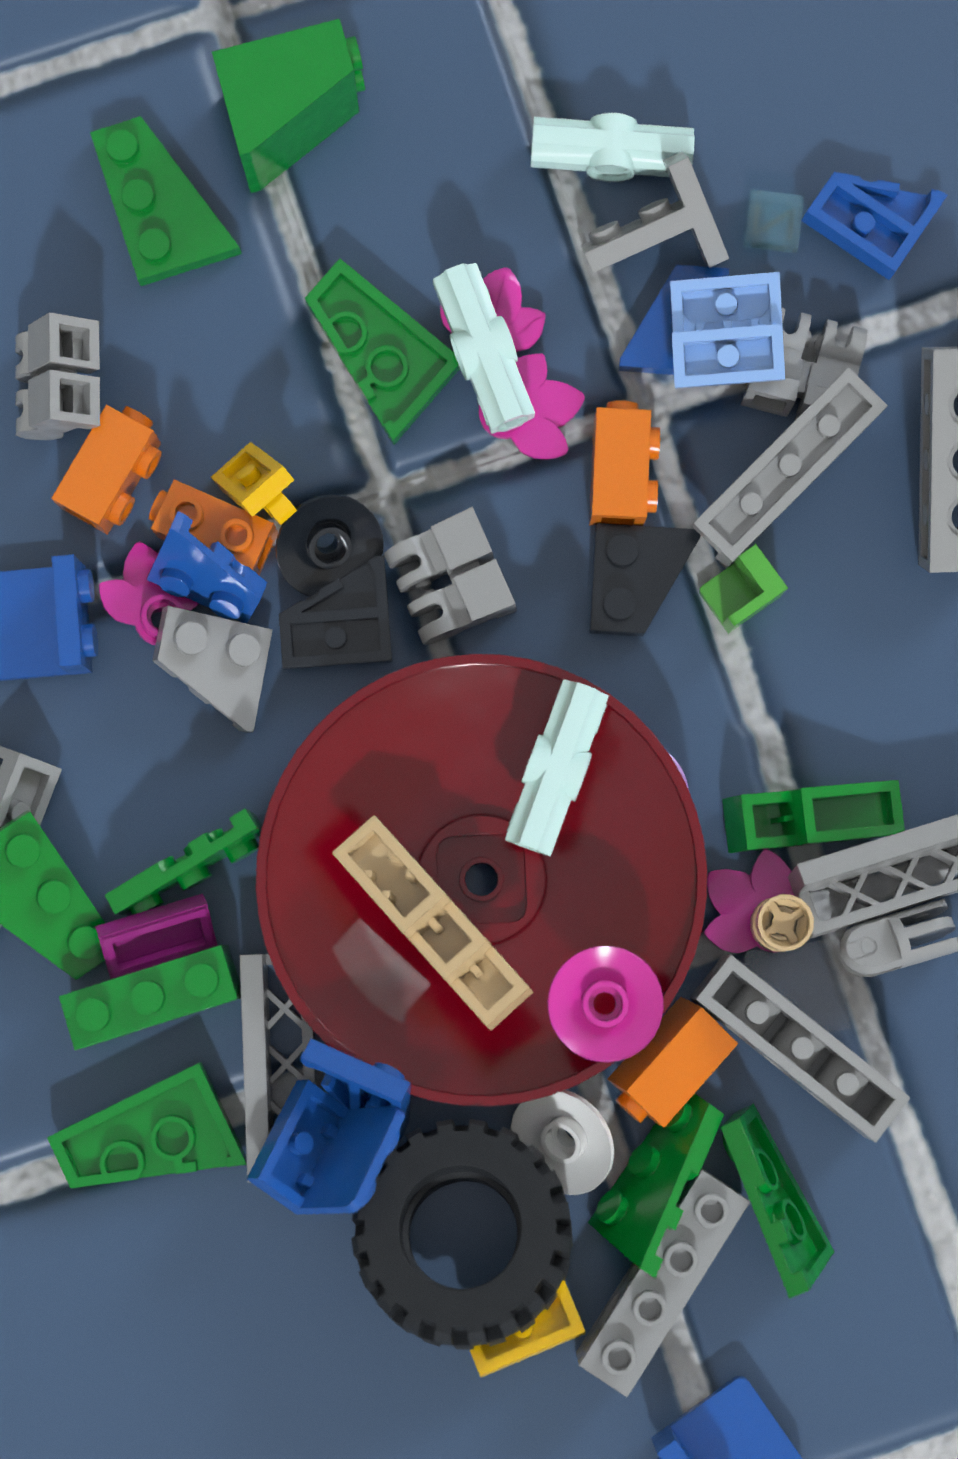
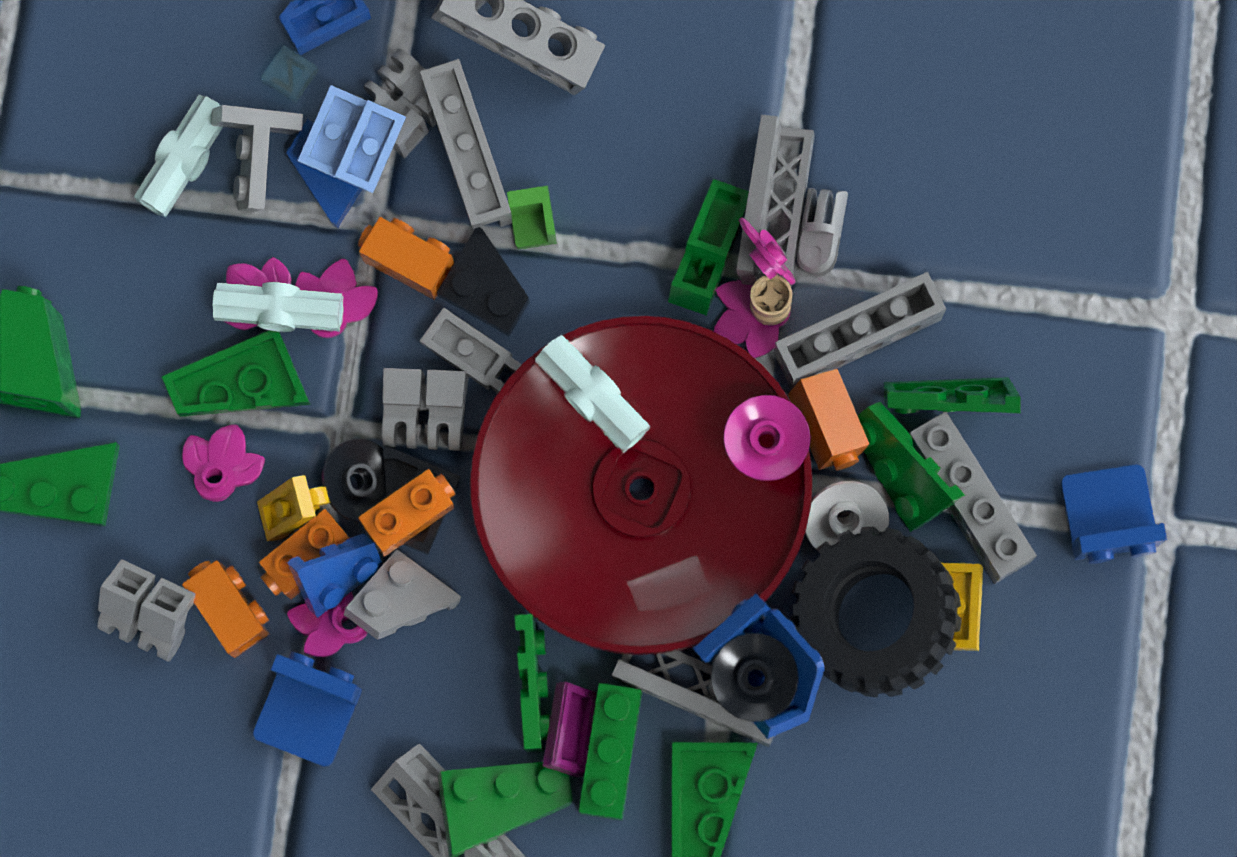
camera: 55 degrees left, 5 degrees down
(281, 1123) = (732, 673): none -> black dish
(283, 376) = (221, 456): none -> dark pink plate
(314, 620) = (408, 511): none -> orange brick
(432, 922) = (654, 527): tan slope -> none
(546, 594) = (468, 350): none -> light grey hinge
(834, 895) = (767, 253): none -> dark pink plate

